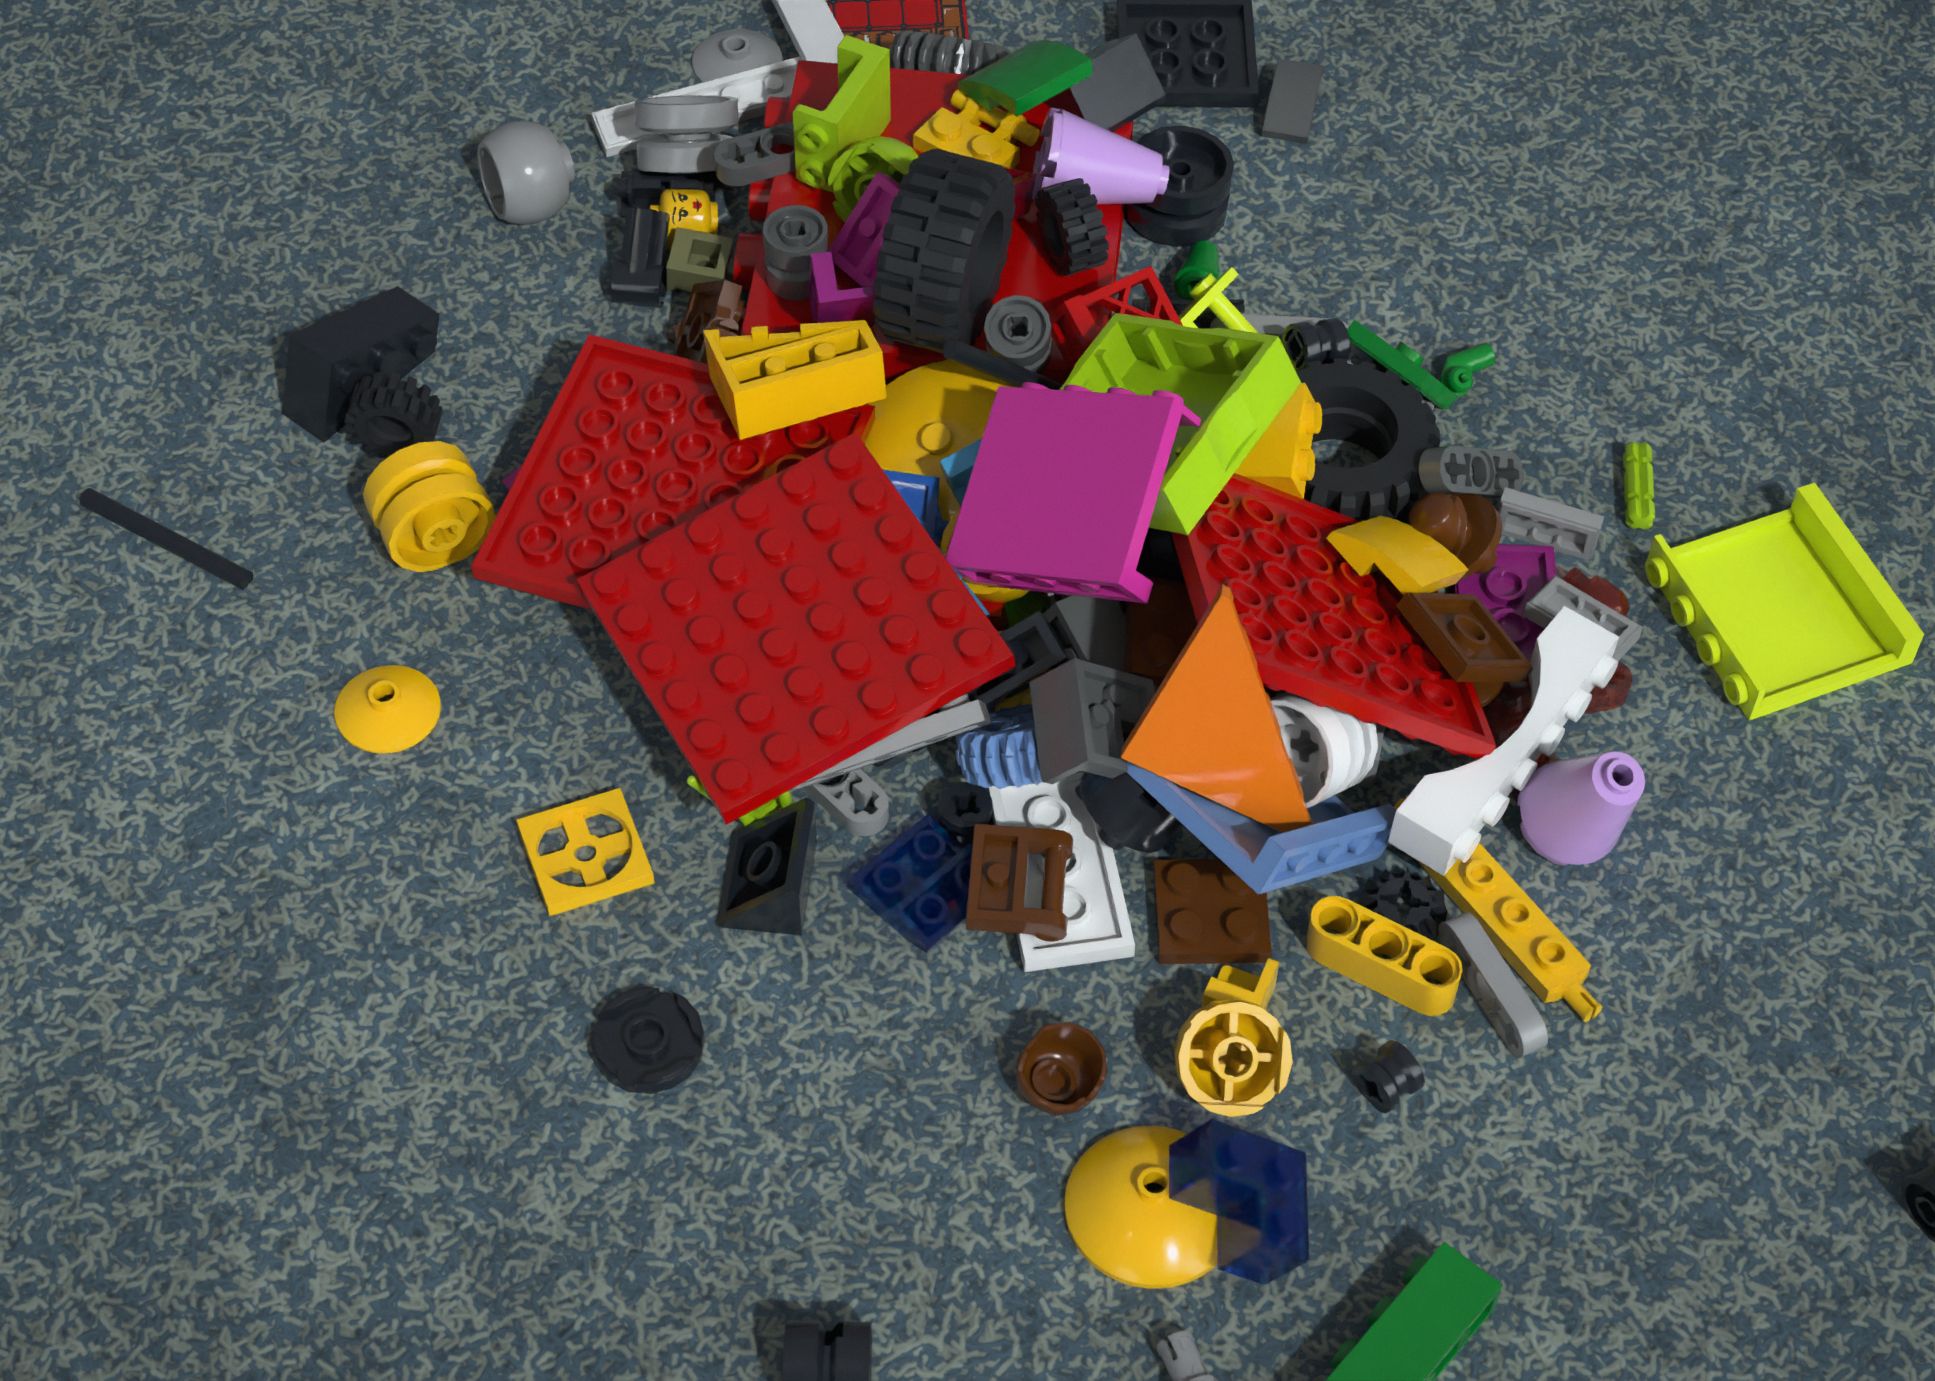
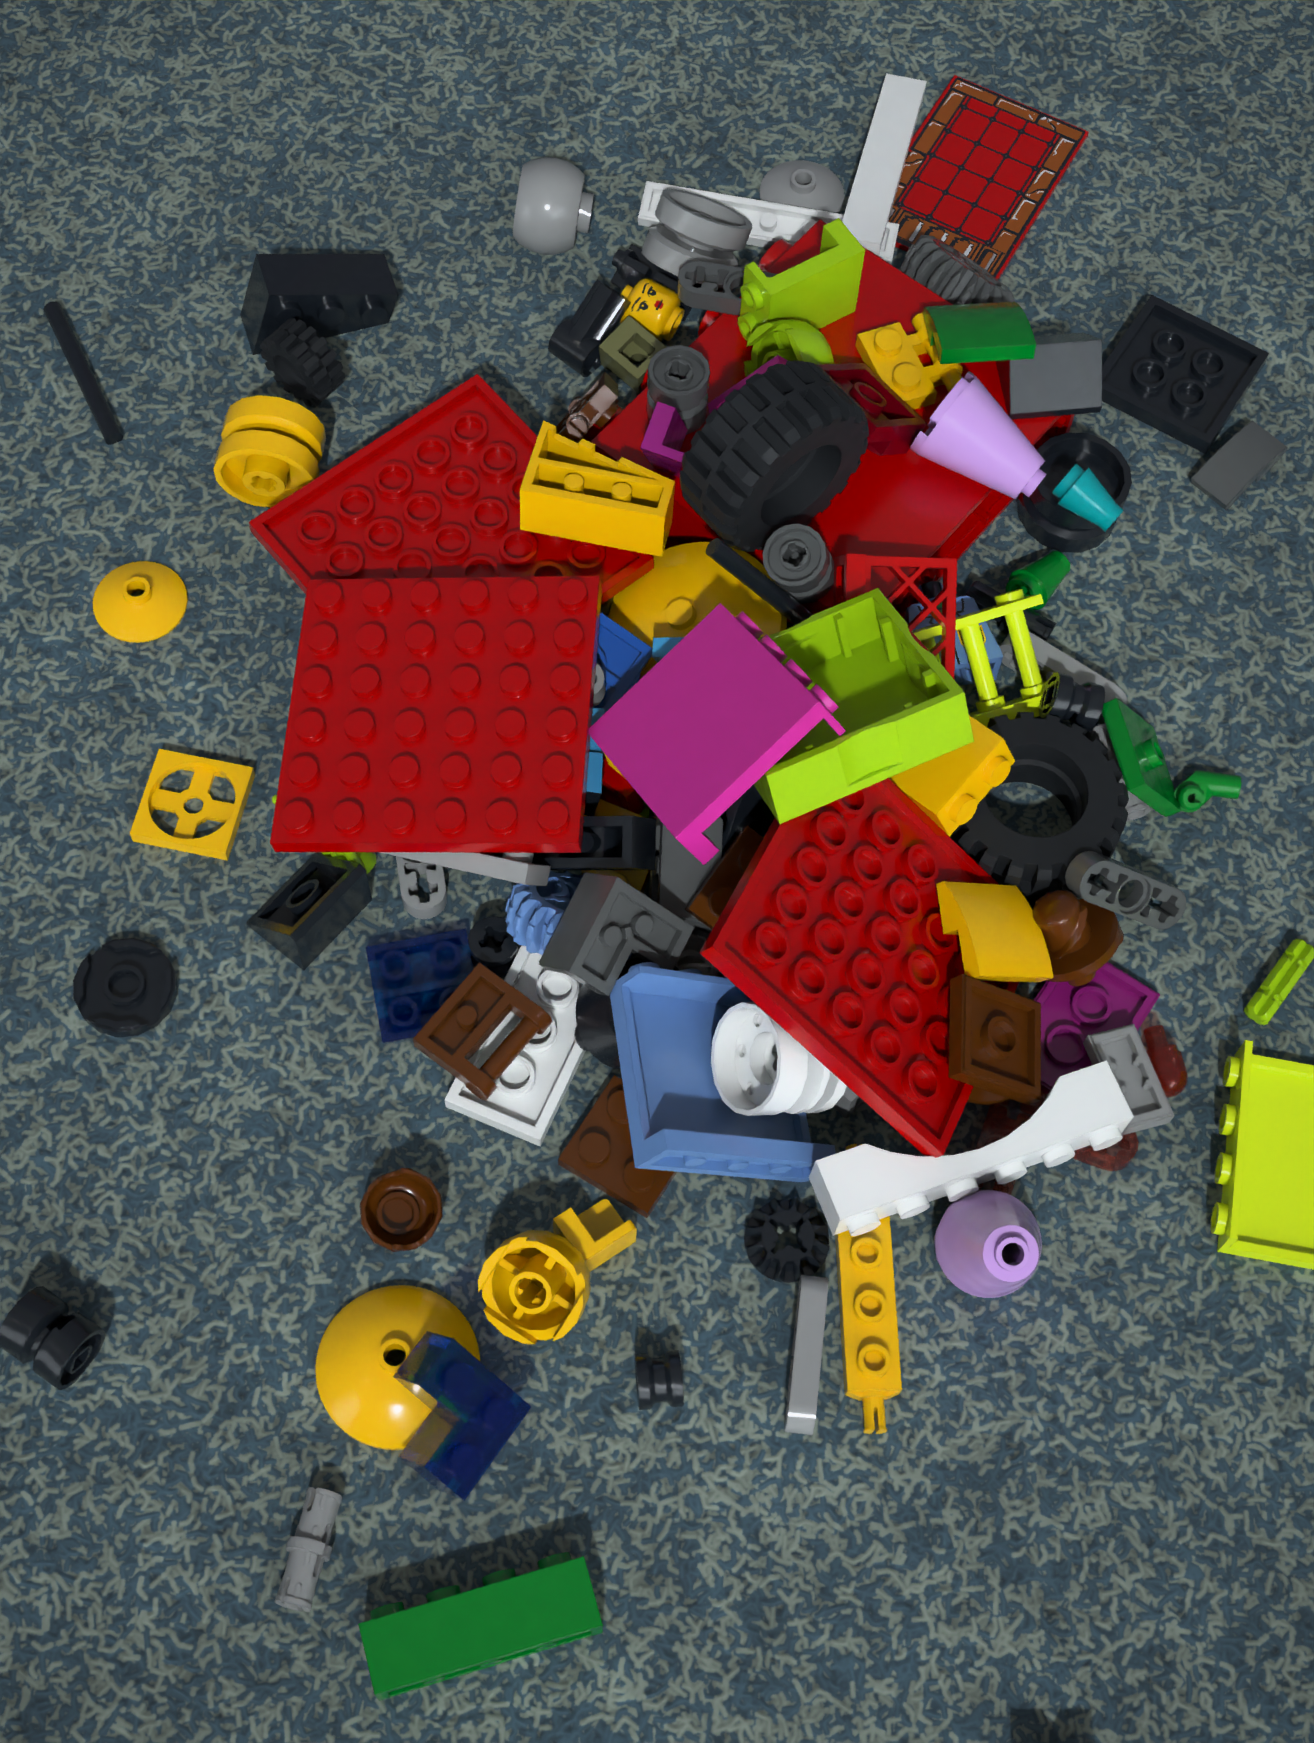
camera: 30 degrees right, 10 degrees up
(1072, 226) = (918, 487): black tyre -> none
(1206, 174) = (1087, 497): none -> teal cone
(1218, 728) = (686, 1014): orange tile -> none
(1370, 934) = (733, 1247): yellow beam -> none
(1549, 523) = (1168, 972): light grey plate -> none

